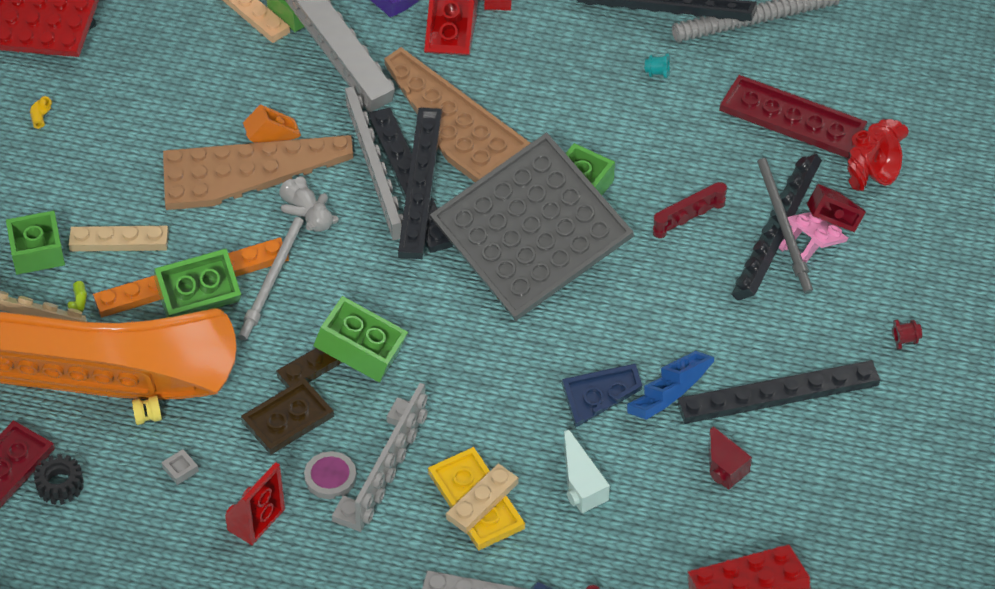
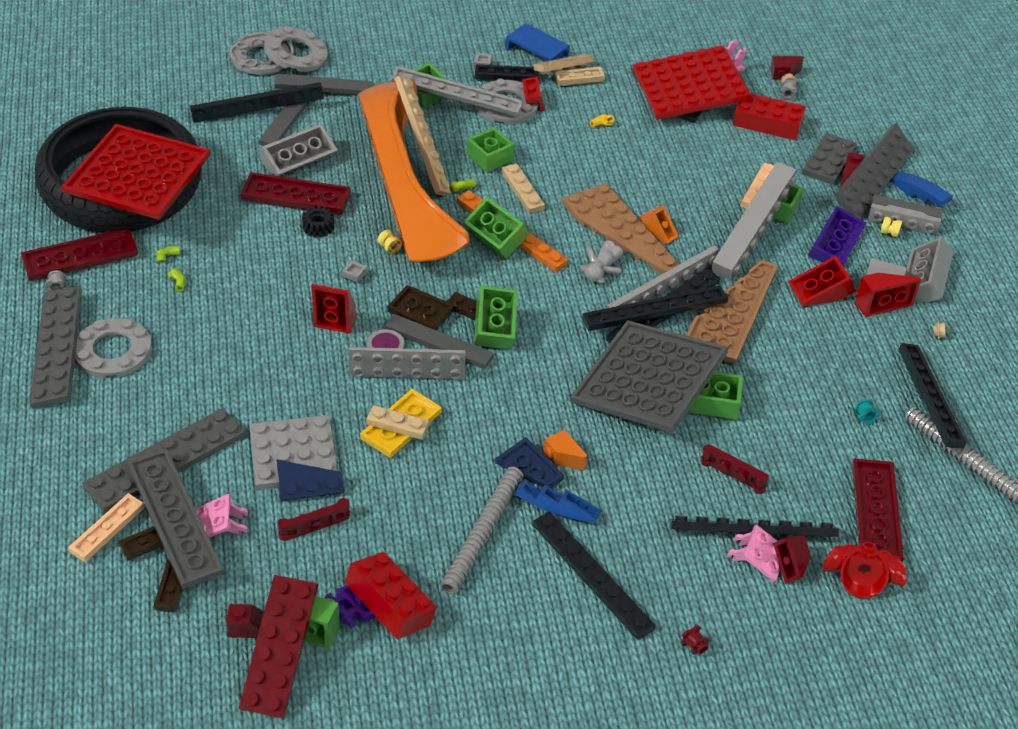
camera: 65 degrees right, 5 degrees down
(253, 315) = (493, 267): light grey bar -> none
(351, 417) = (438, 340): none -> dark grey tile
(584, 481) = (447, 473): light aqua slope -> none
(596, 350) = (564, 451): none -> orange slope
(680, 470) = (481, 531): none -> light grey piece
(726, 460) = (505, 553): dark red slope -> none
(800, 268) = (720, 552): dark grey bar -> none

